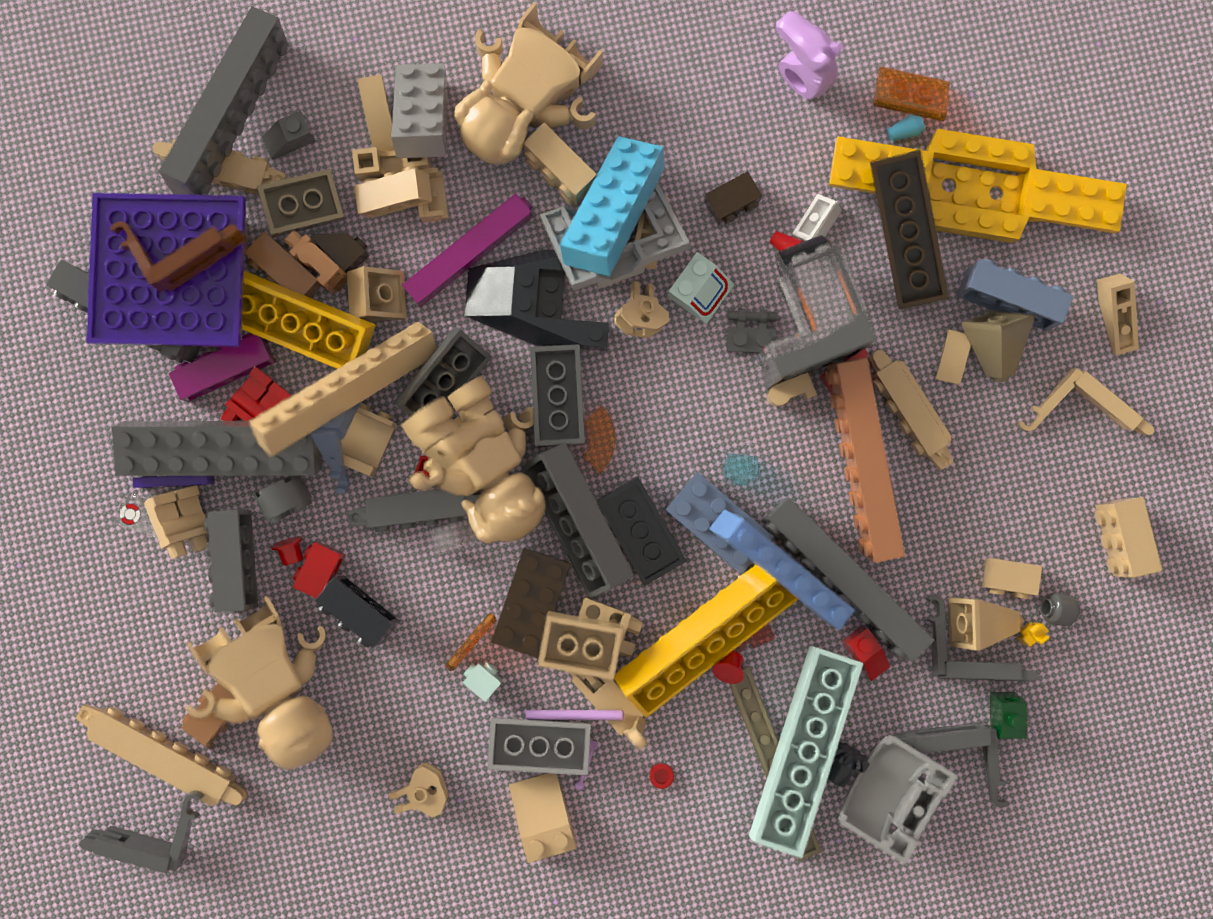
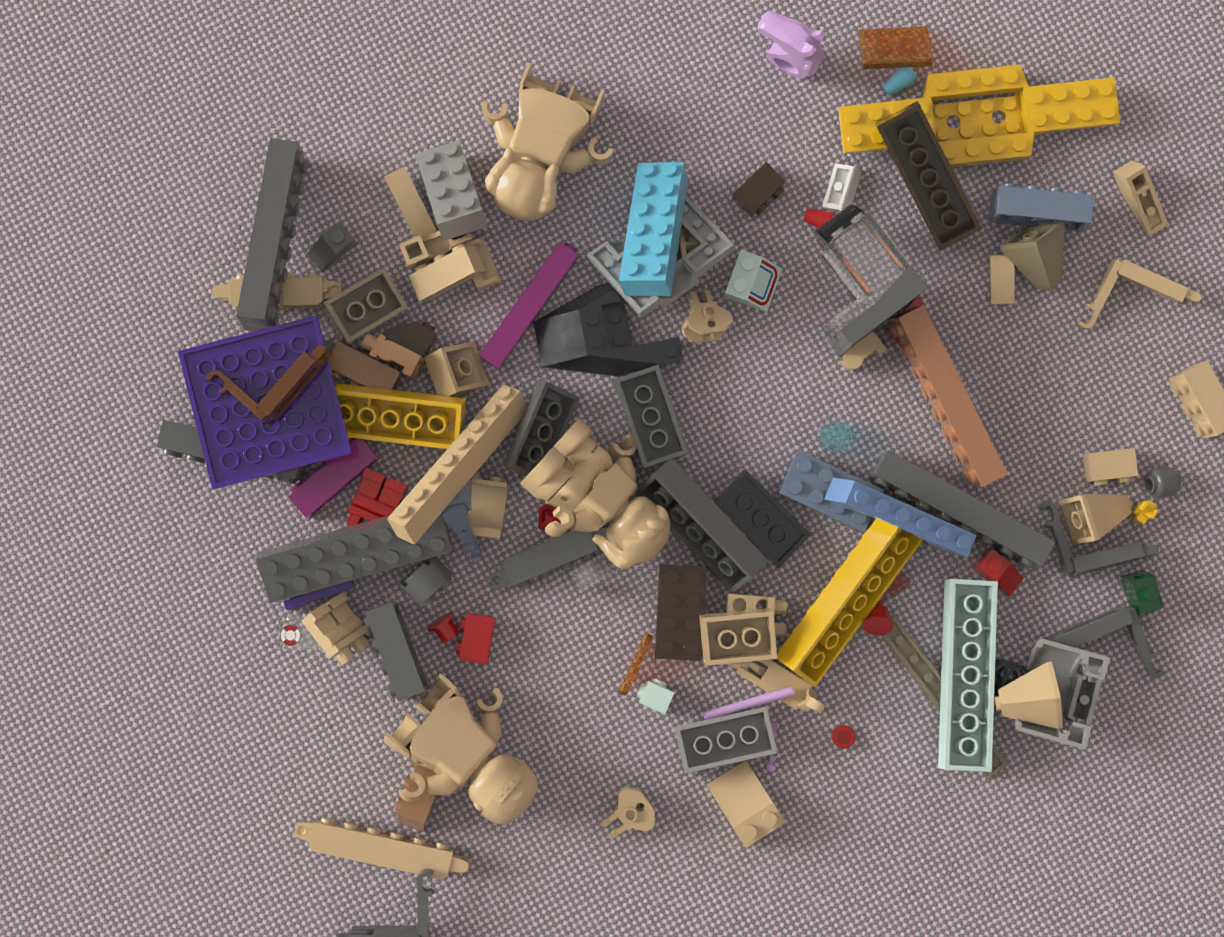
camera: 20 degrees left, 0 degrees up
(356, 611) = (524, 665): black brick -> none
(559, 165) = (592, 205): tan brick -> none
(602, 439) = (701, 445): clear orange tile -> none
(750, 339) = (813, 314): dark grey plate -> none
(866, 794) = (1032, 698): none -> tan slope
(912, 409) = (977, 337): tan hinge -> none

